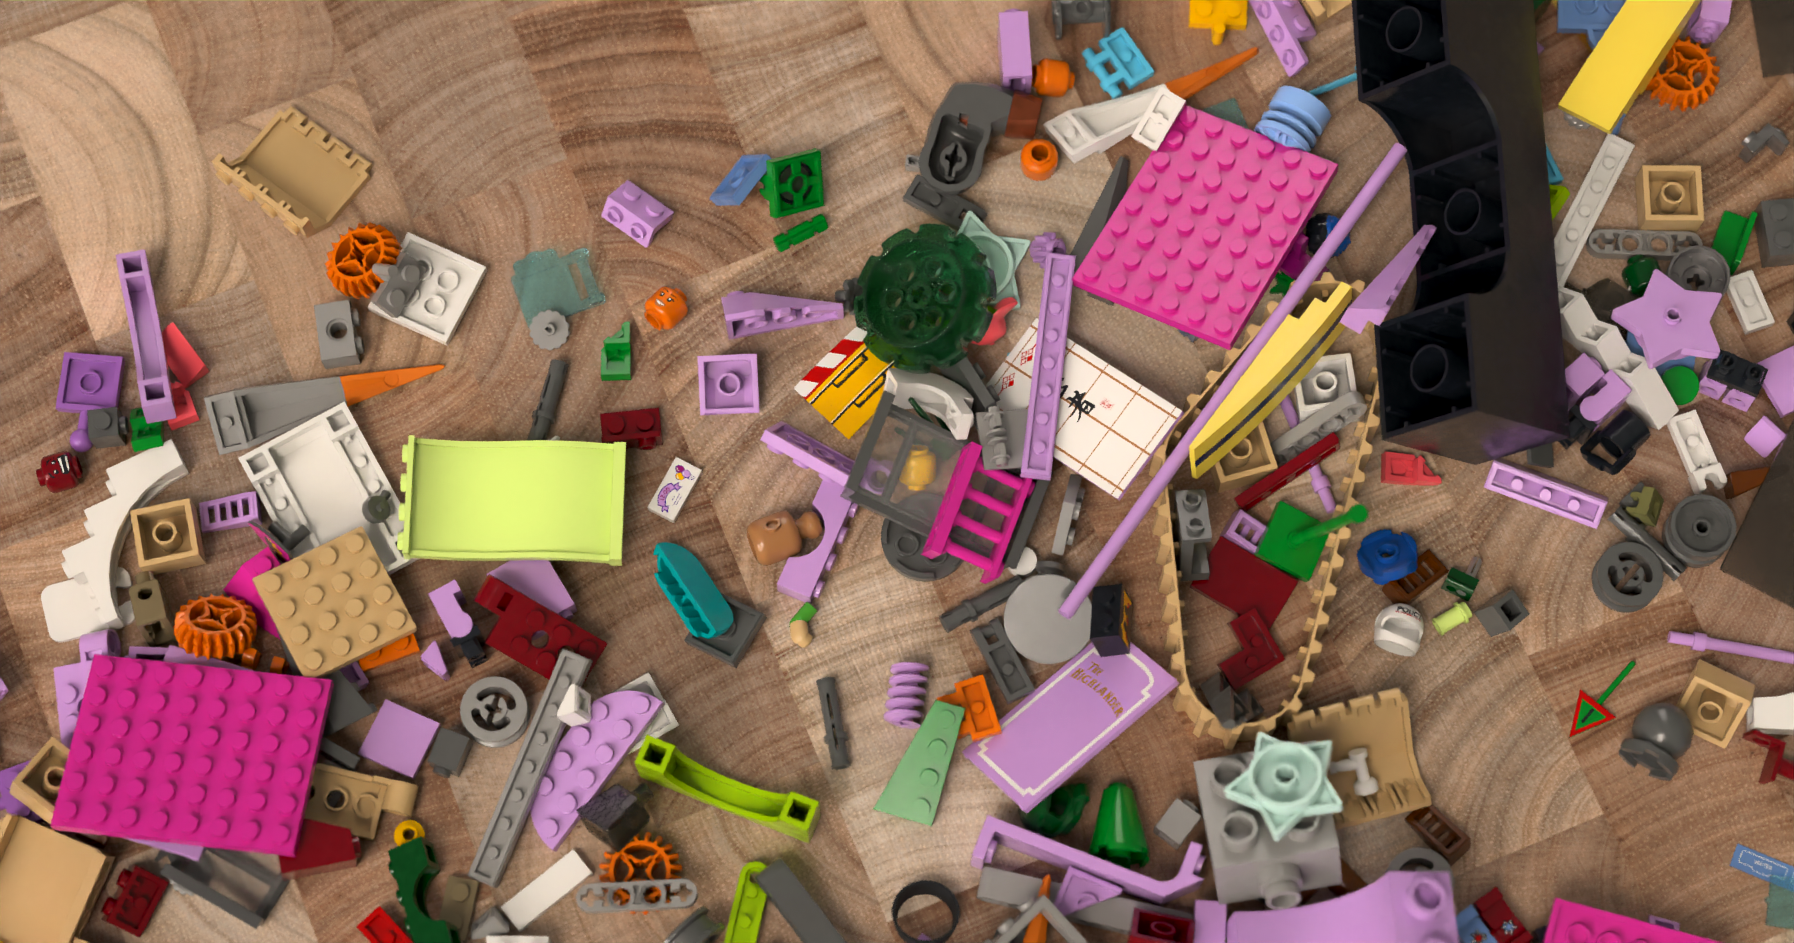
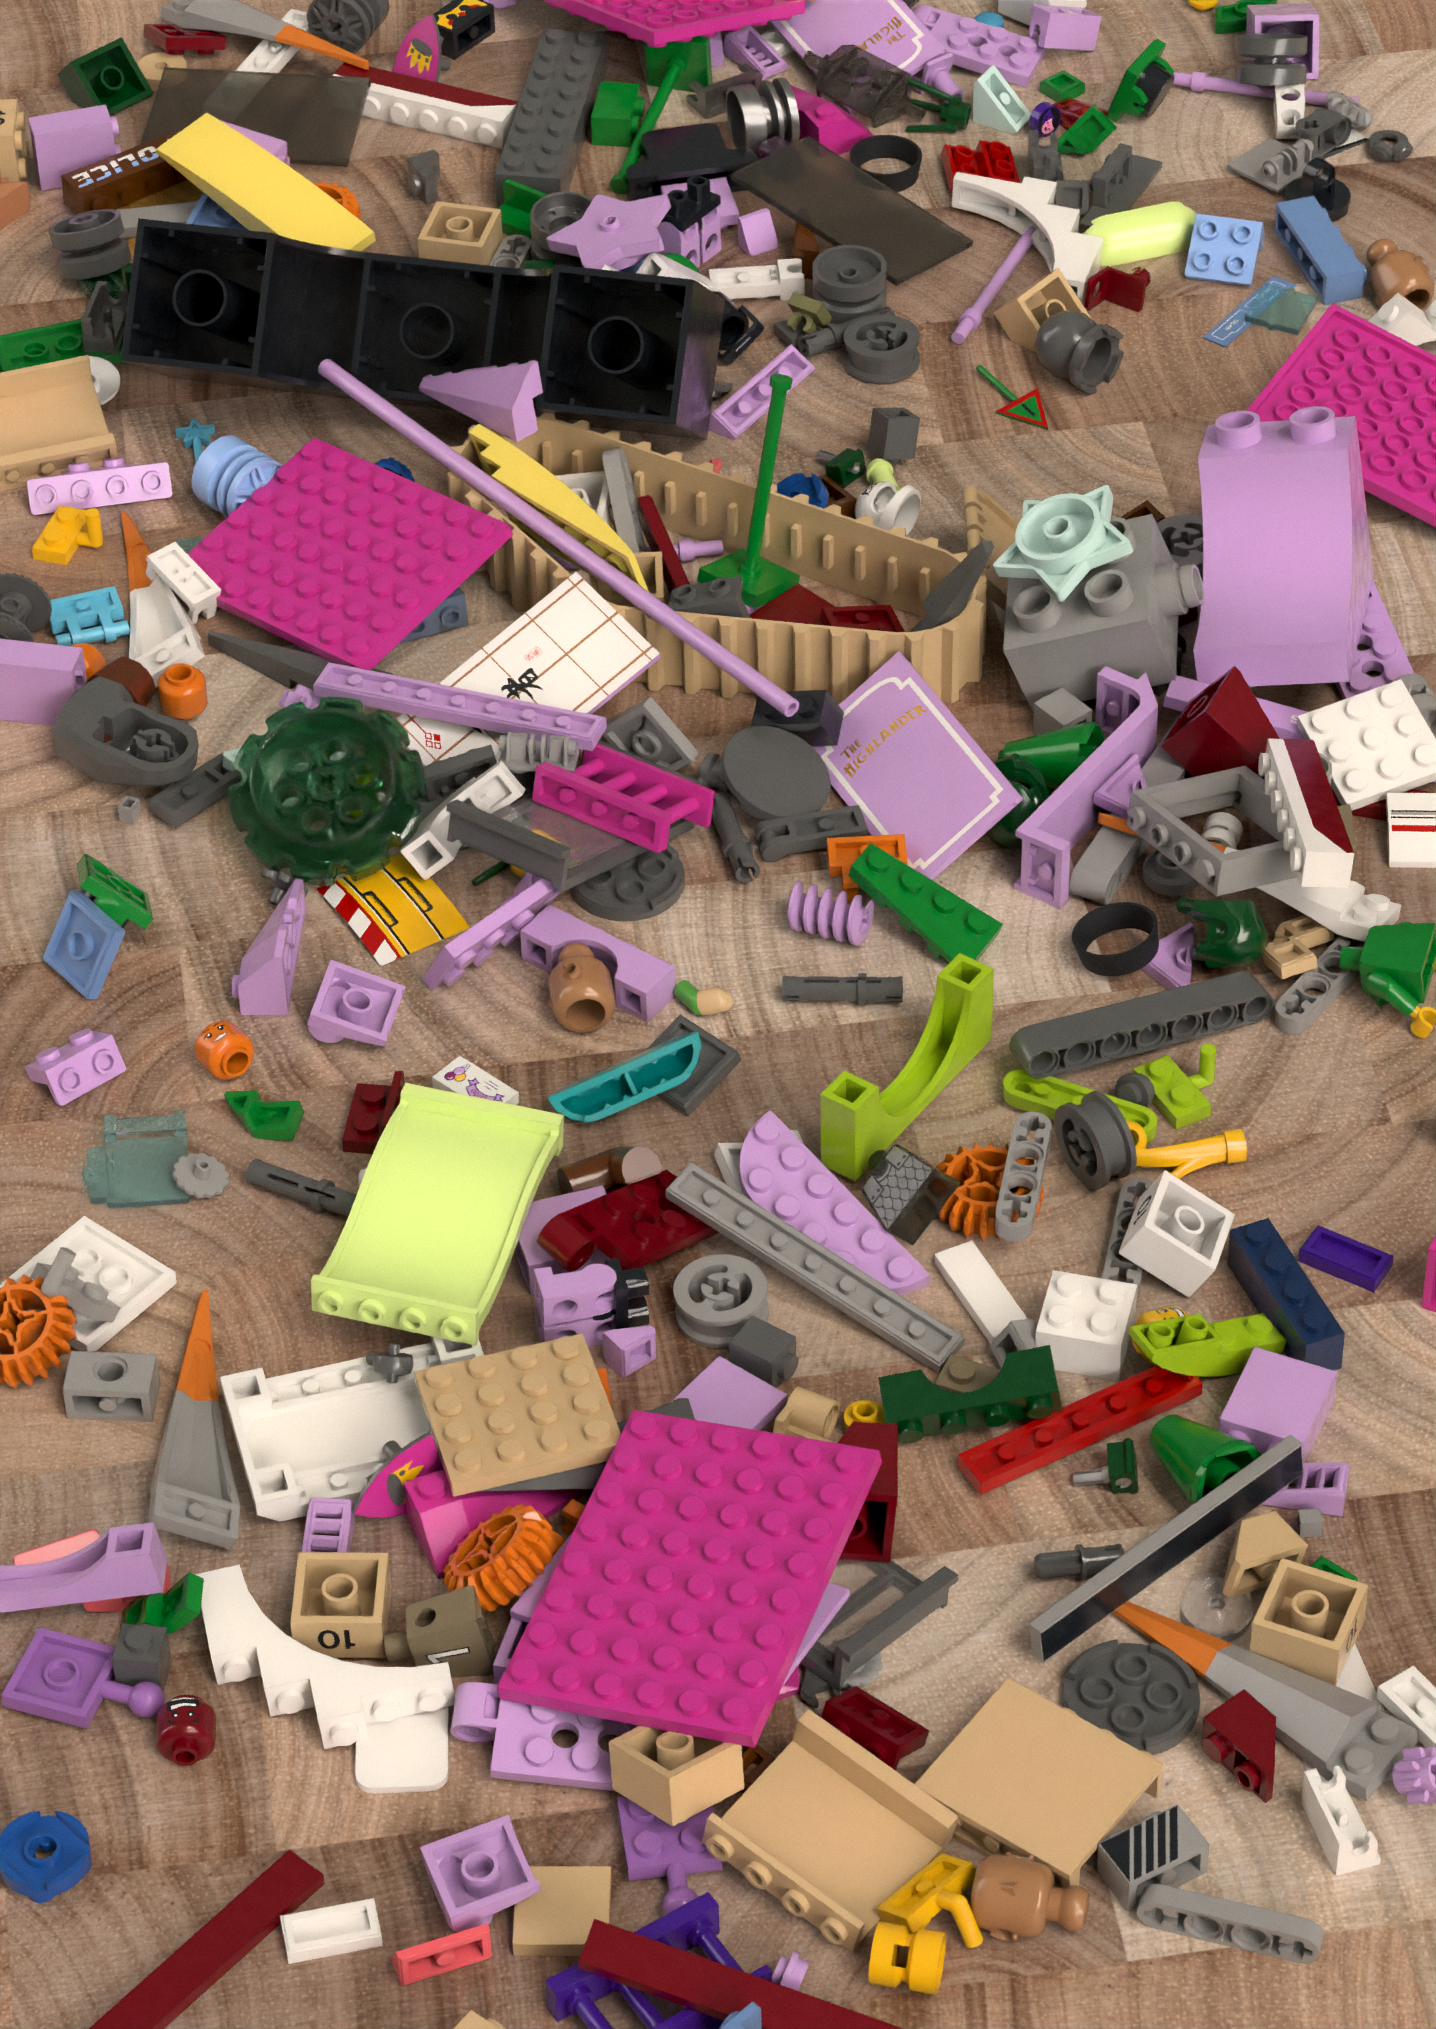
camera: 75 degrees left, 30 degrees down
(575, 707) = (752, 1184): white slope -> none
(602, 606) = (612, 1167): none -> reddish brown brick
(800, 232) = (175, 921): green axle -> none

